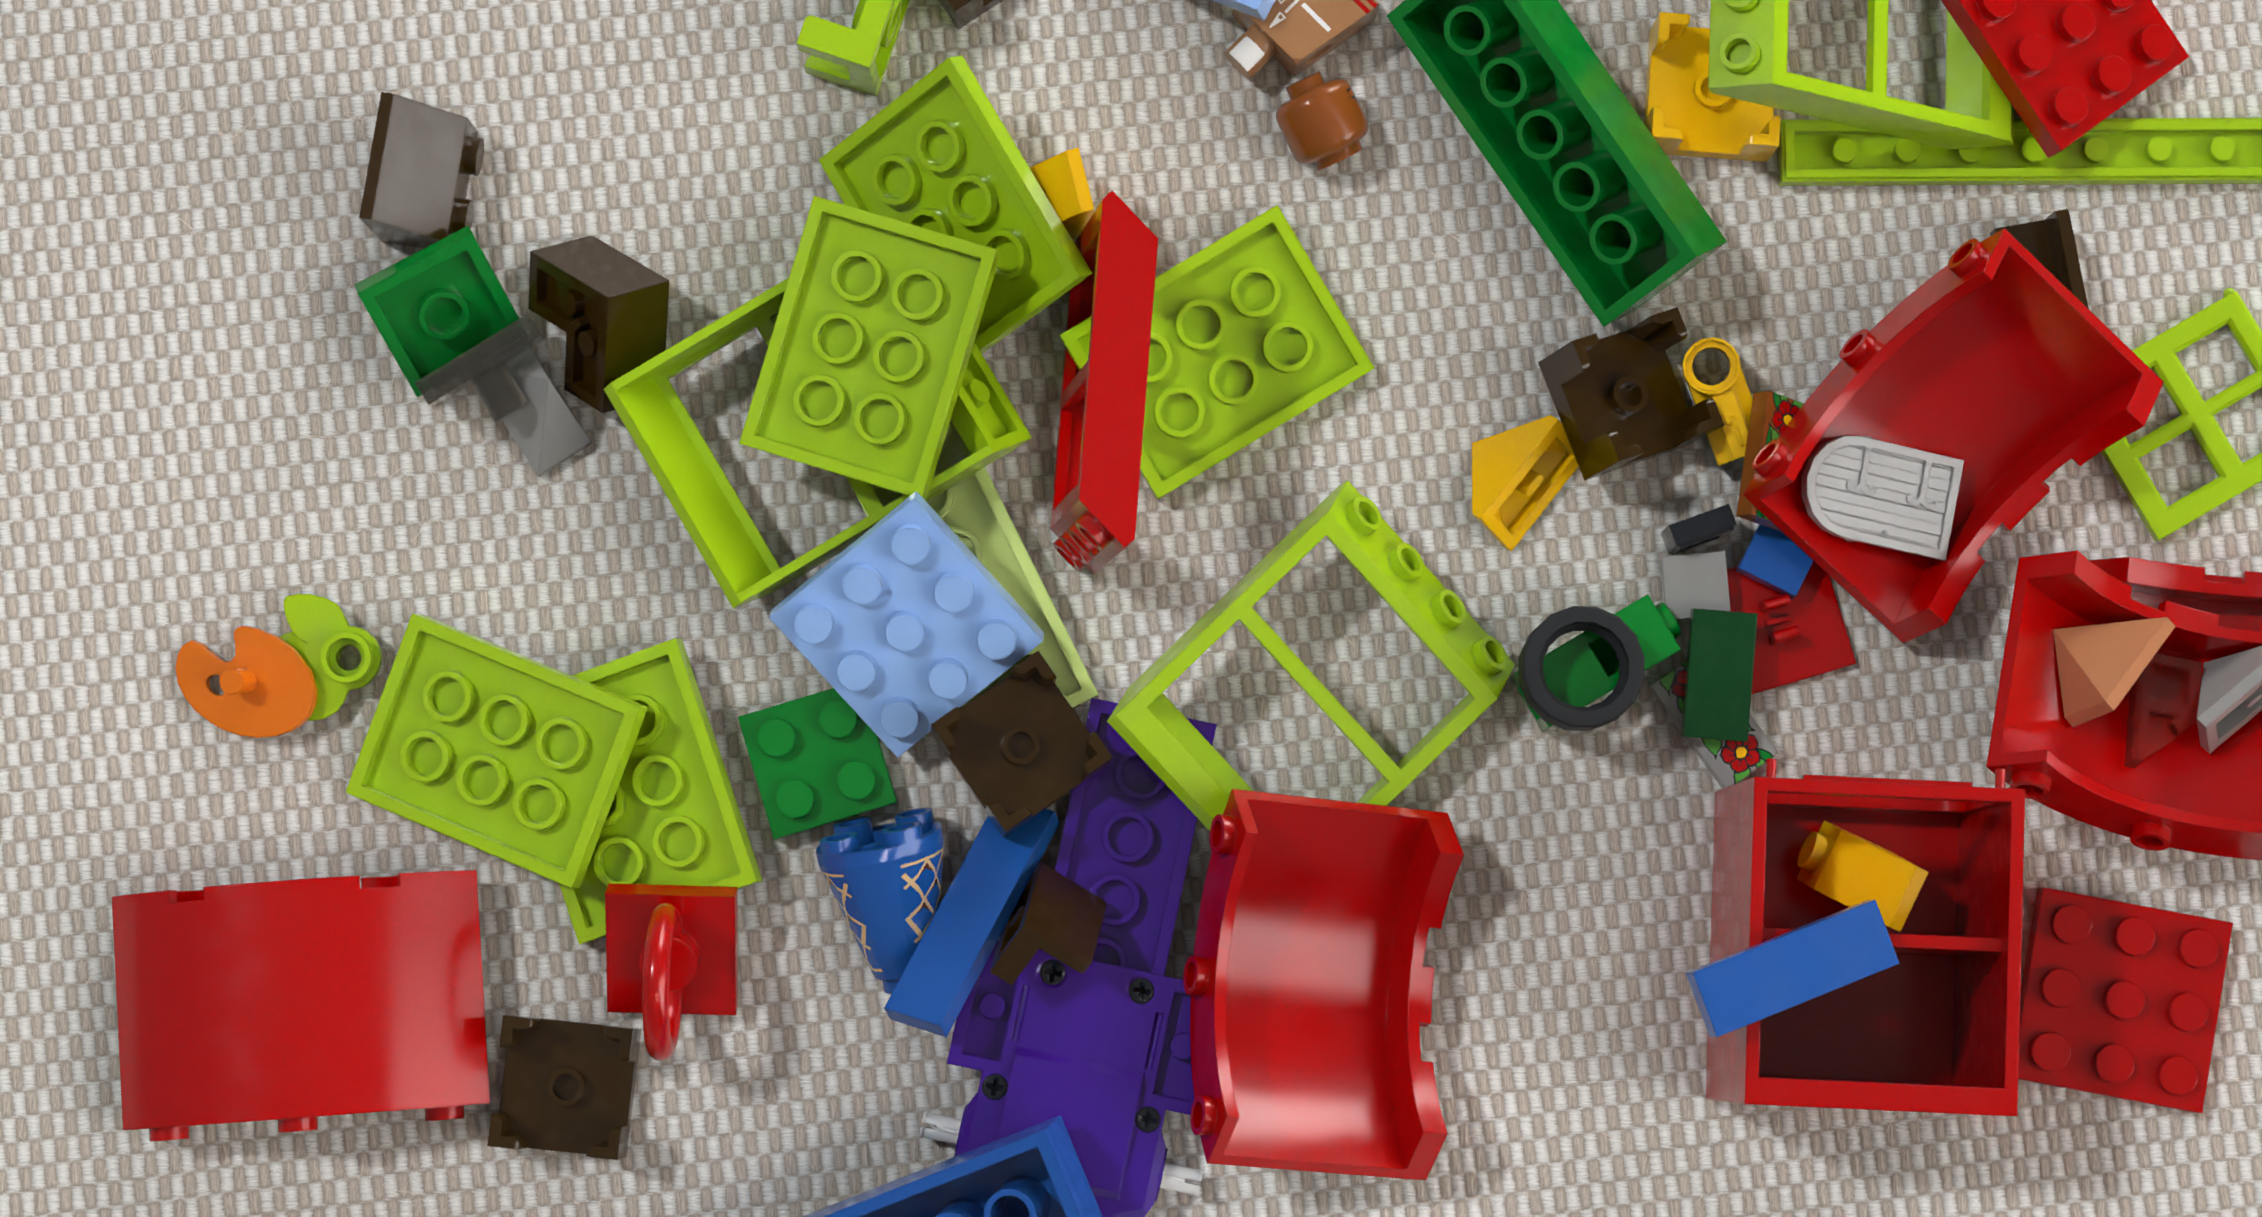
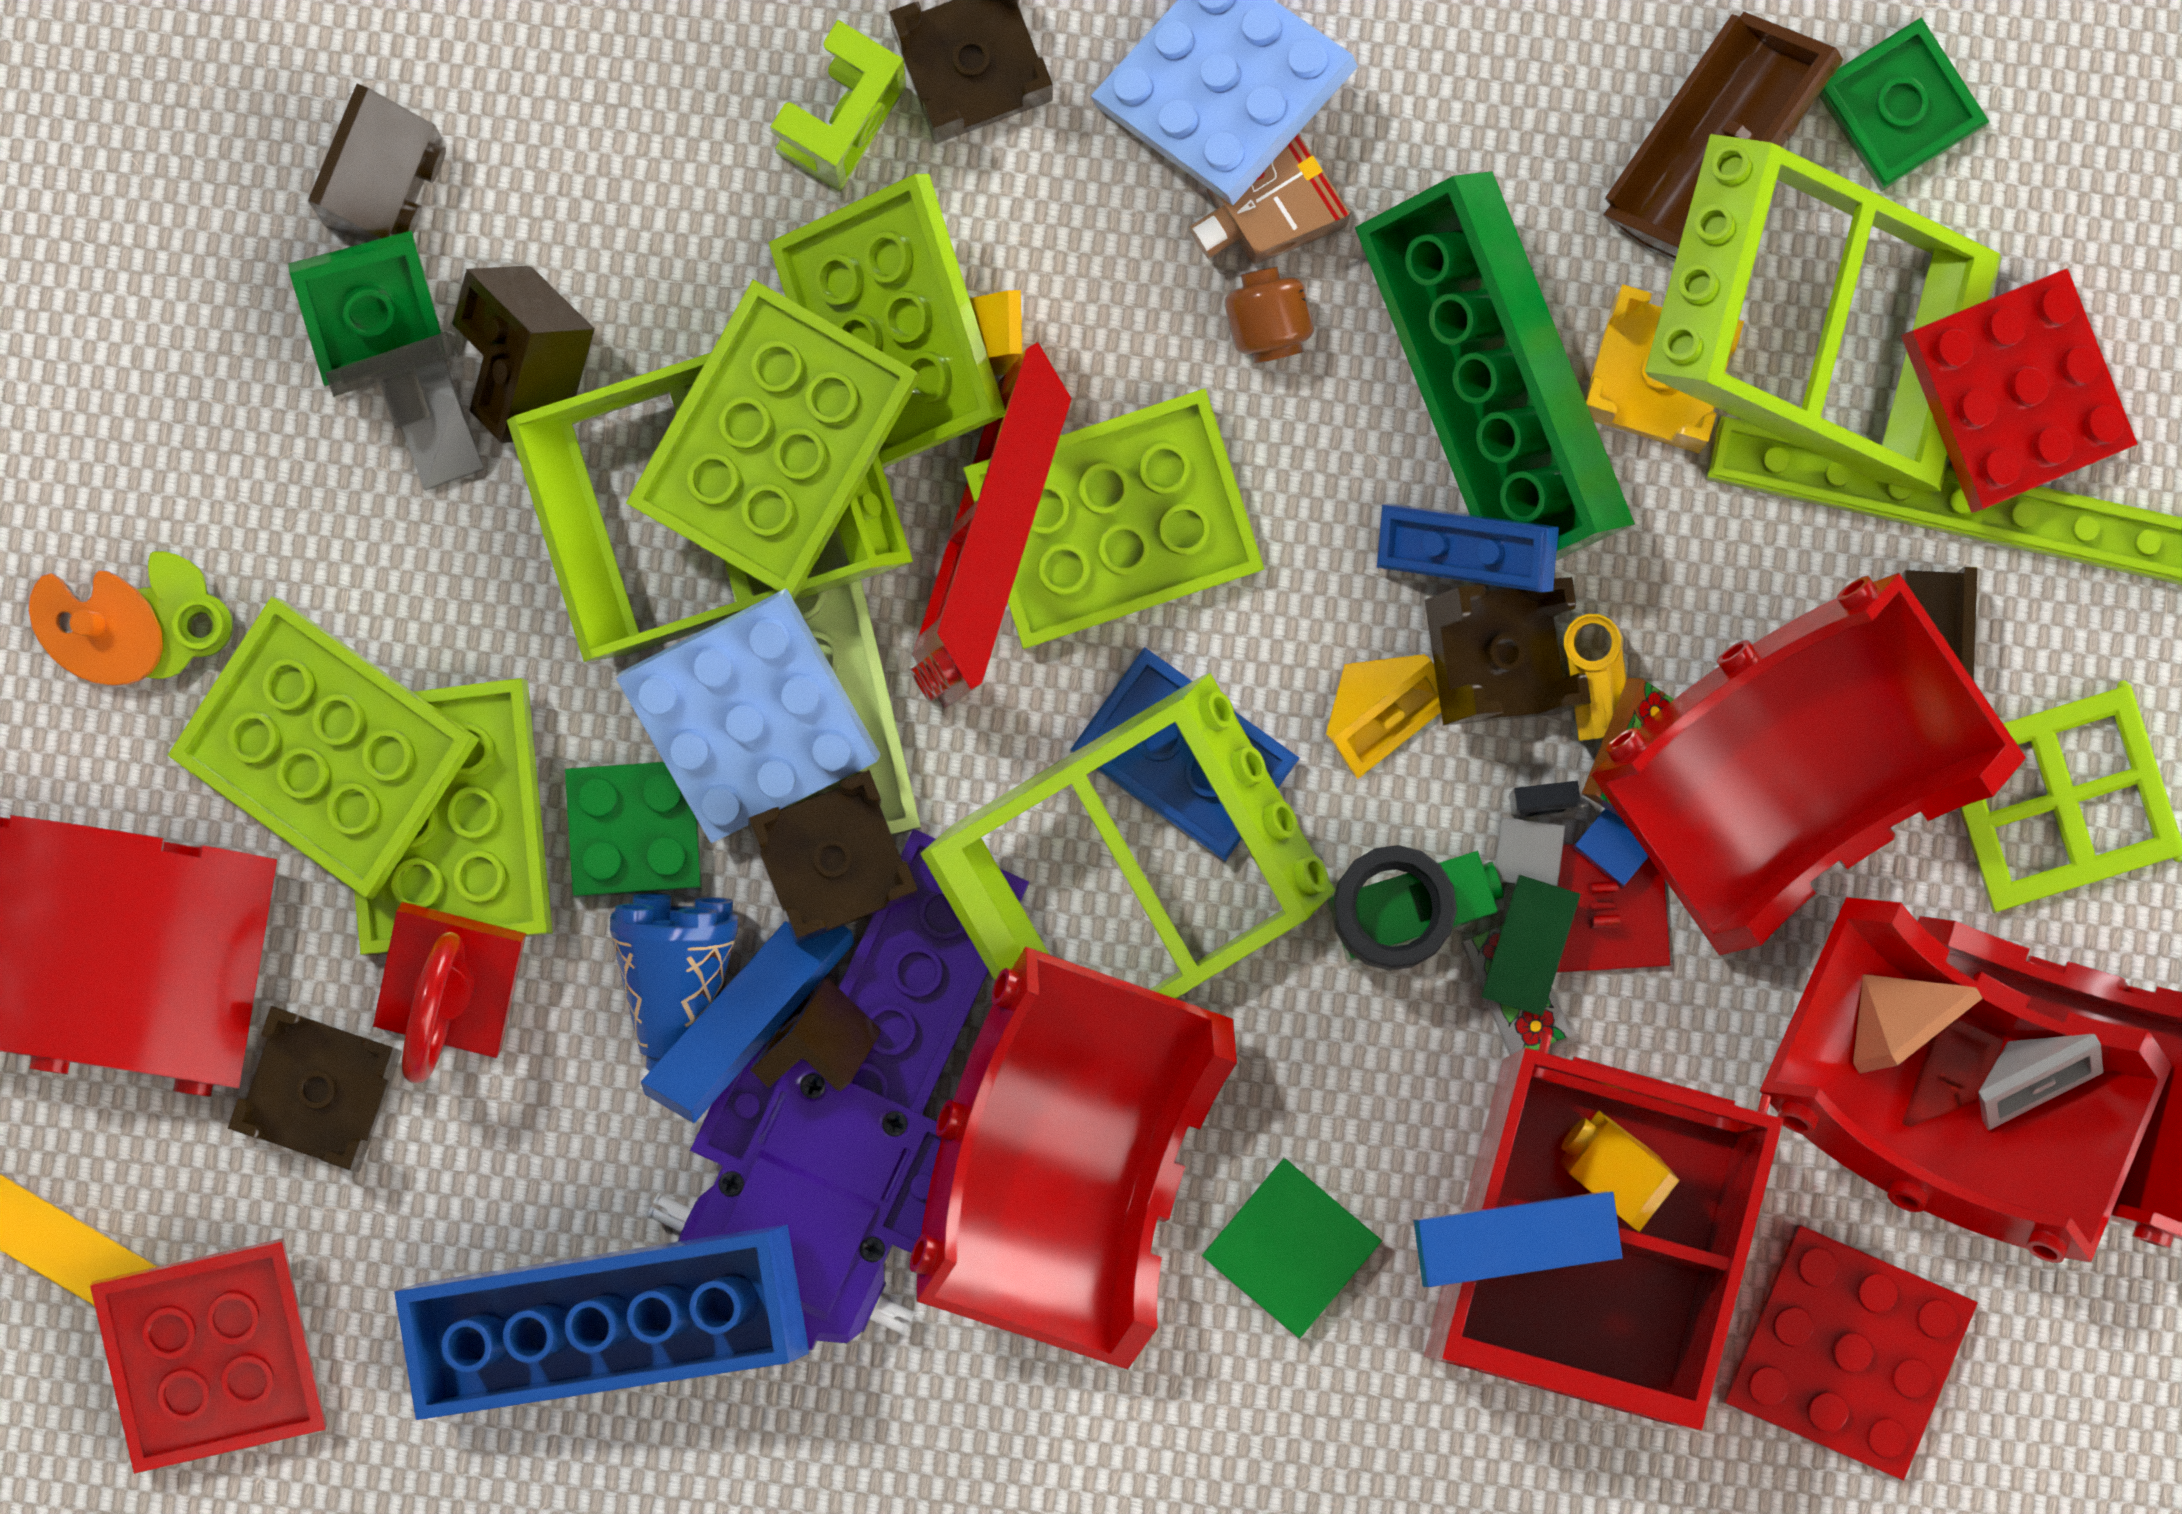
camera: 10 degrees right, 0 degrees up
(1323, 584) = (1162, 767): none -> blue tile
(1554, 1023) = (1291, 1248): none -> green tile
(1569, 301) = (1467, 547): none -> blue tile
(1883, 494) = (1730, 805): light grey window -> none

